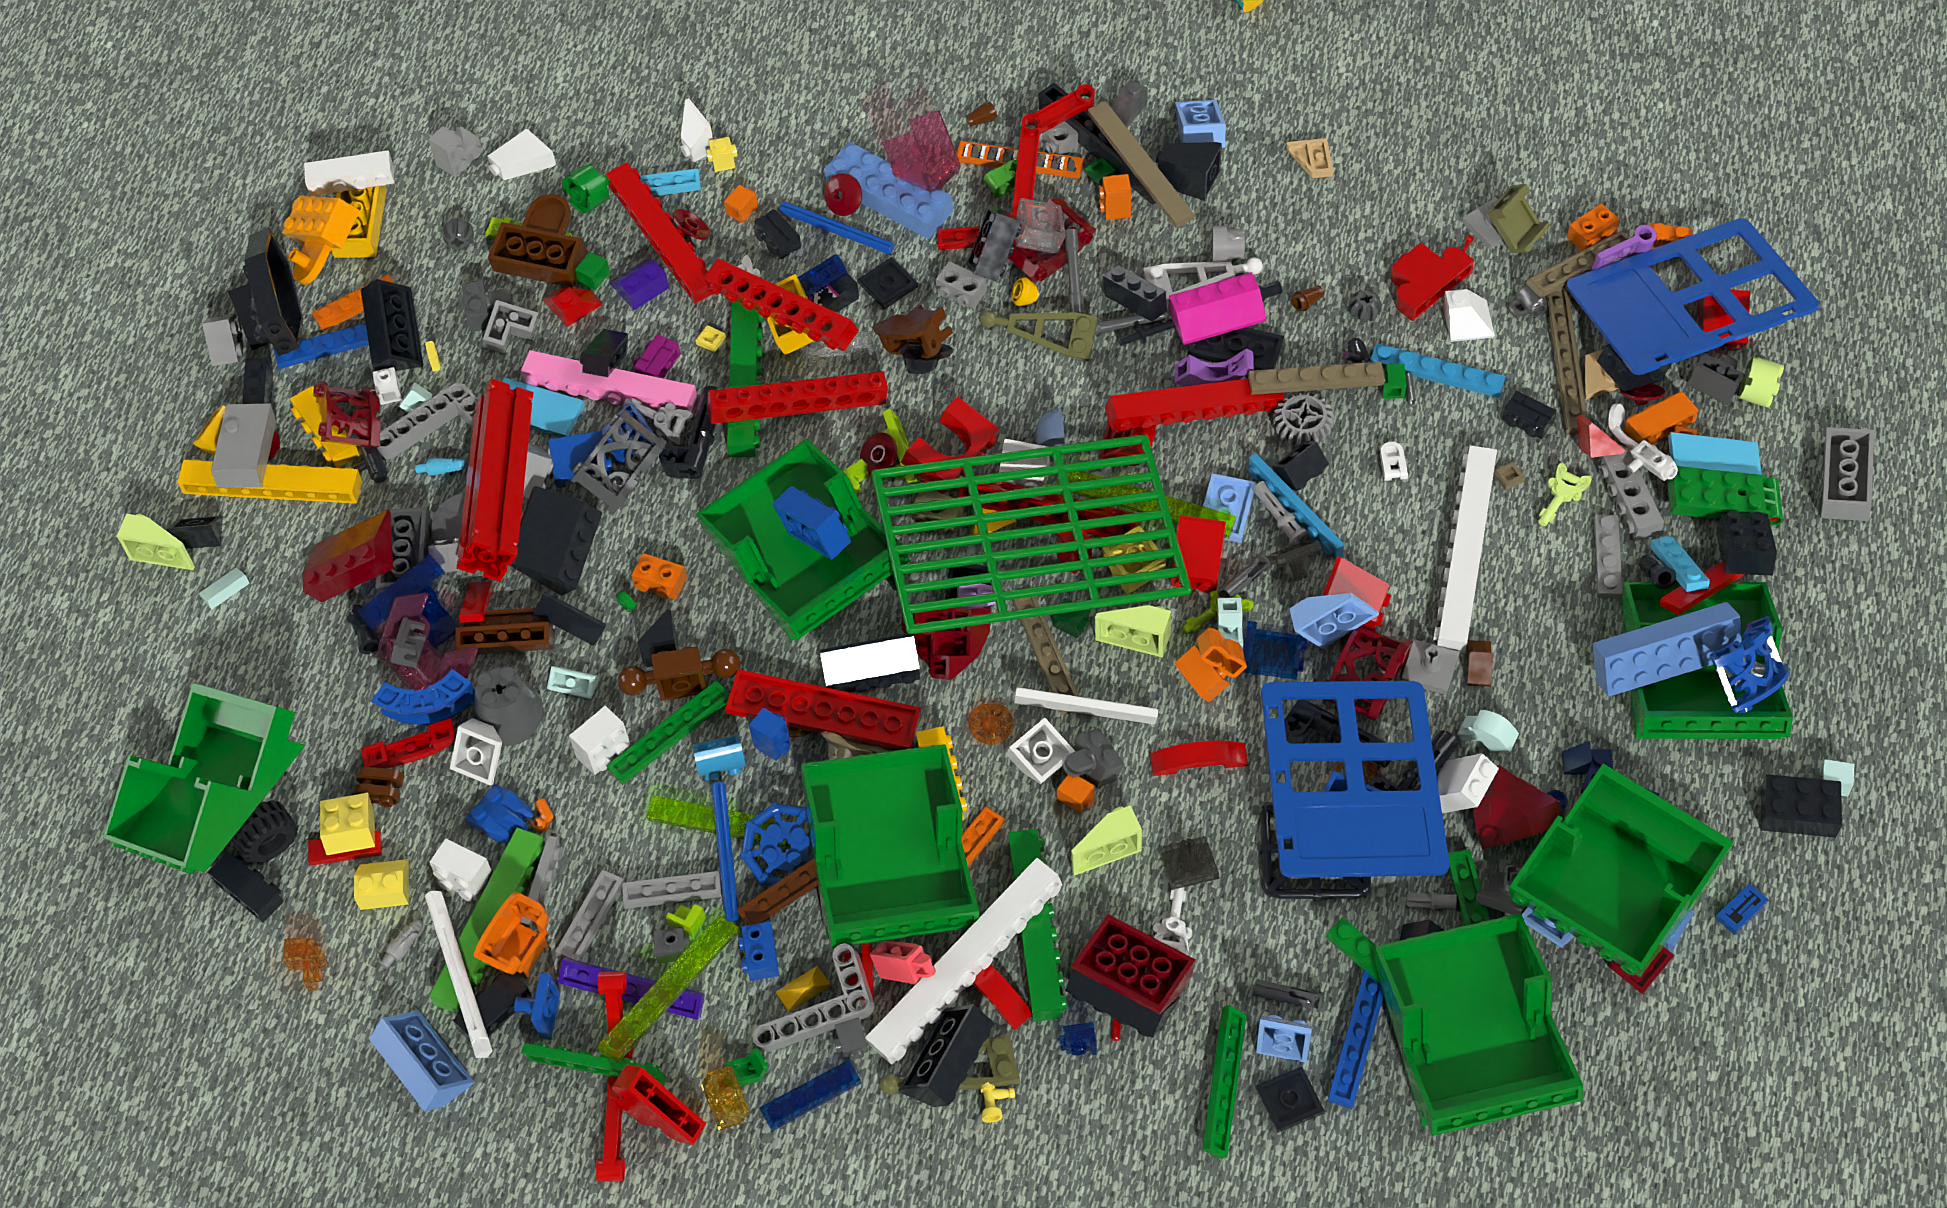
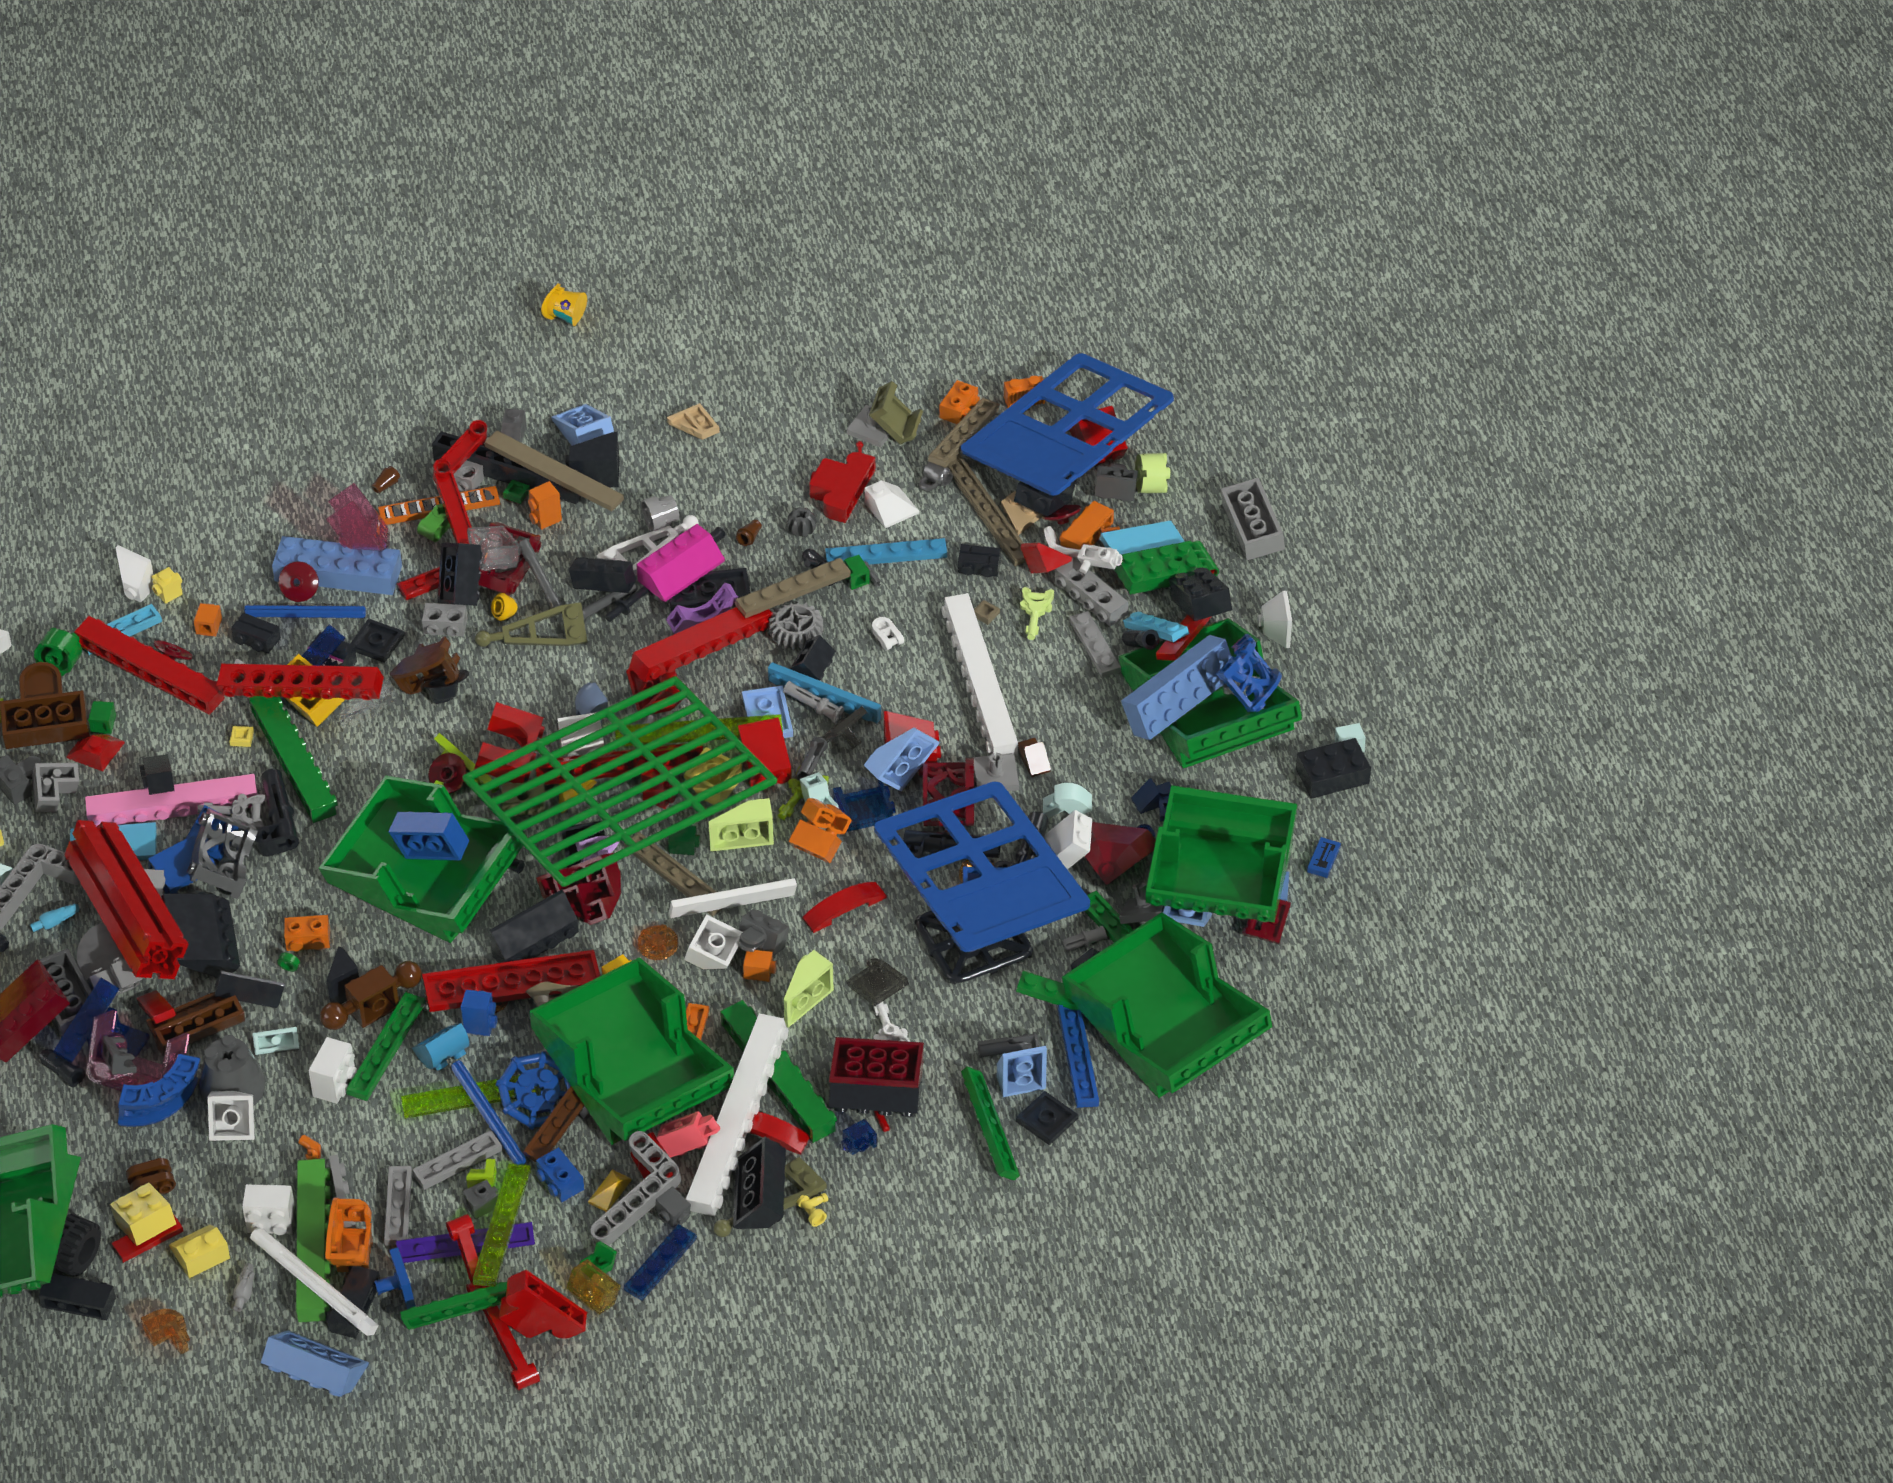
camera: 30 degrees left, 10 degrees down
(411, 748) = (165, 1139): red slope -> none
(499, 814) = (272, 1160): blue plate -> none
(641, 283) = (152, 712): dark purple slope -> none
(658, 357) = (204, 763): magenta brick -> none
(797, 397) = (353, 751): red brick -> none
(1640, 242) = (1005, 398): medium lavender piece -> none
(1818, 603) = (1277, 619): none -> white slope

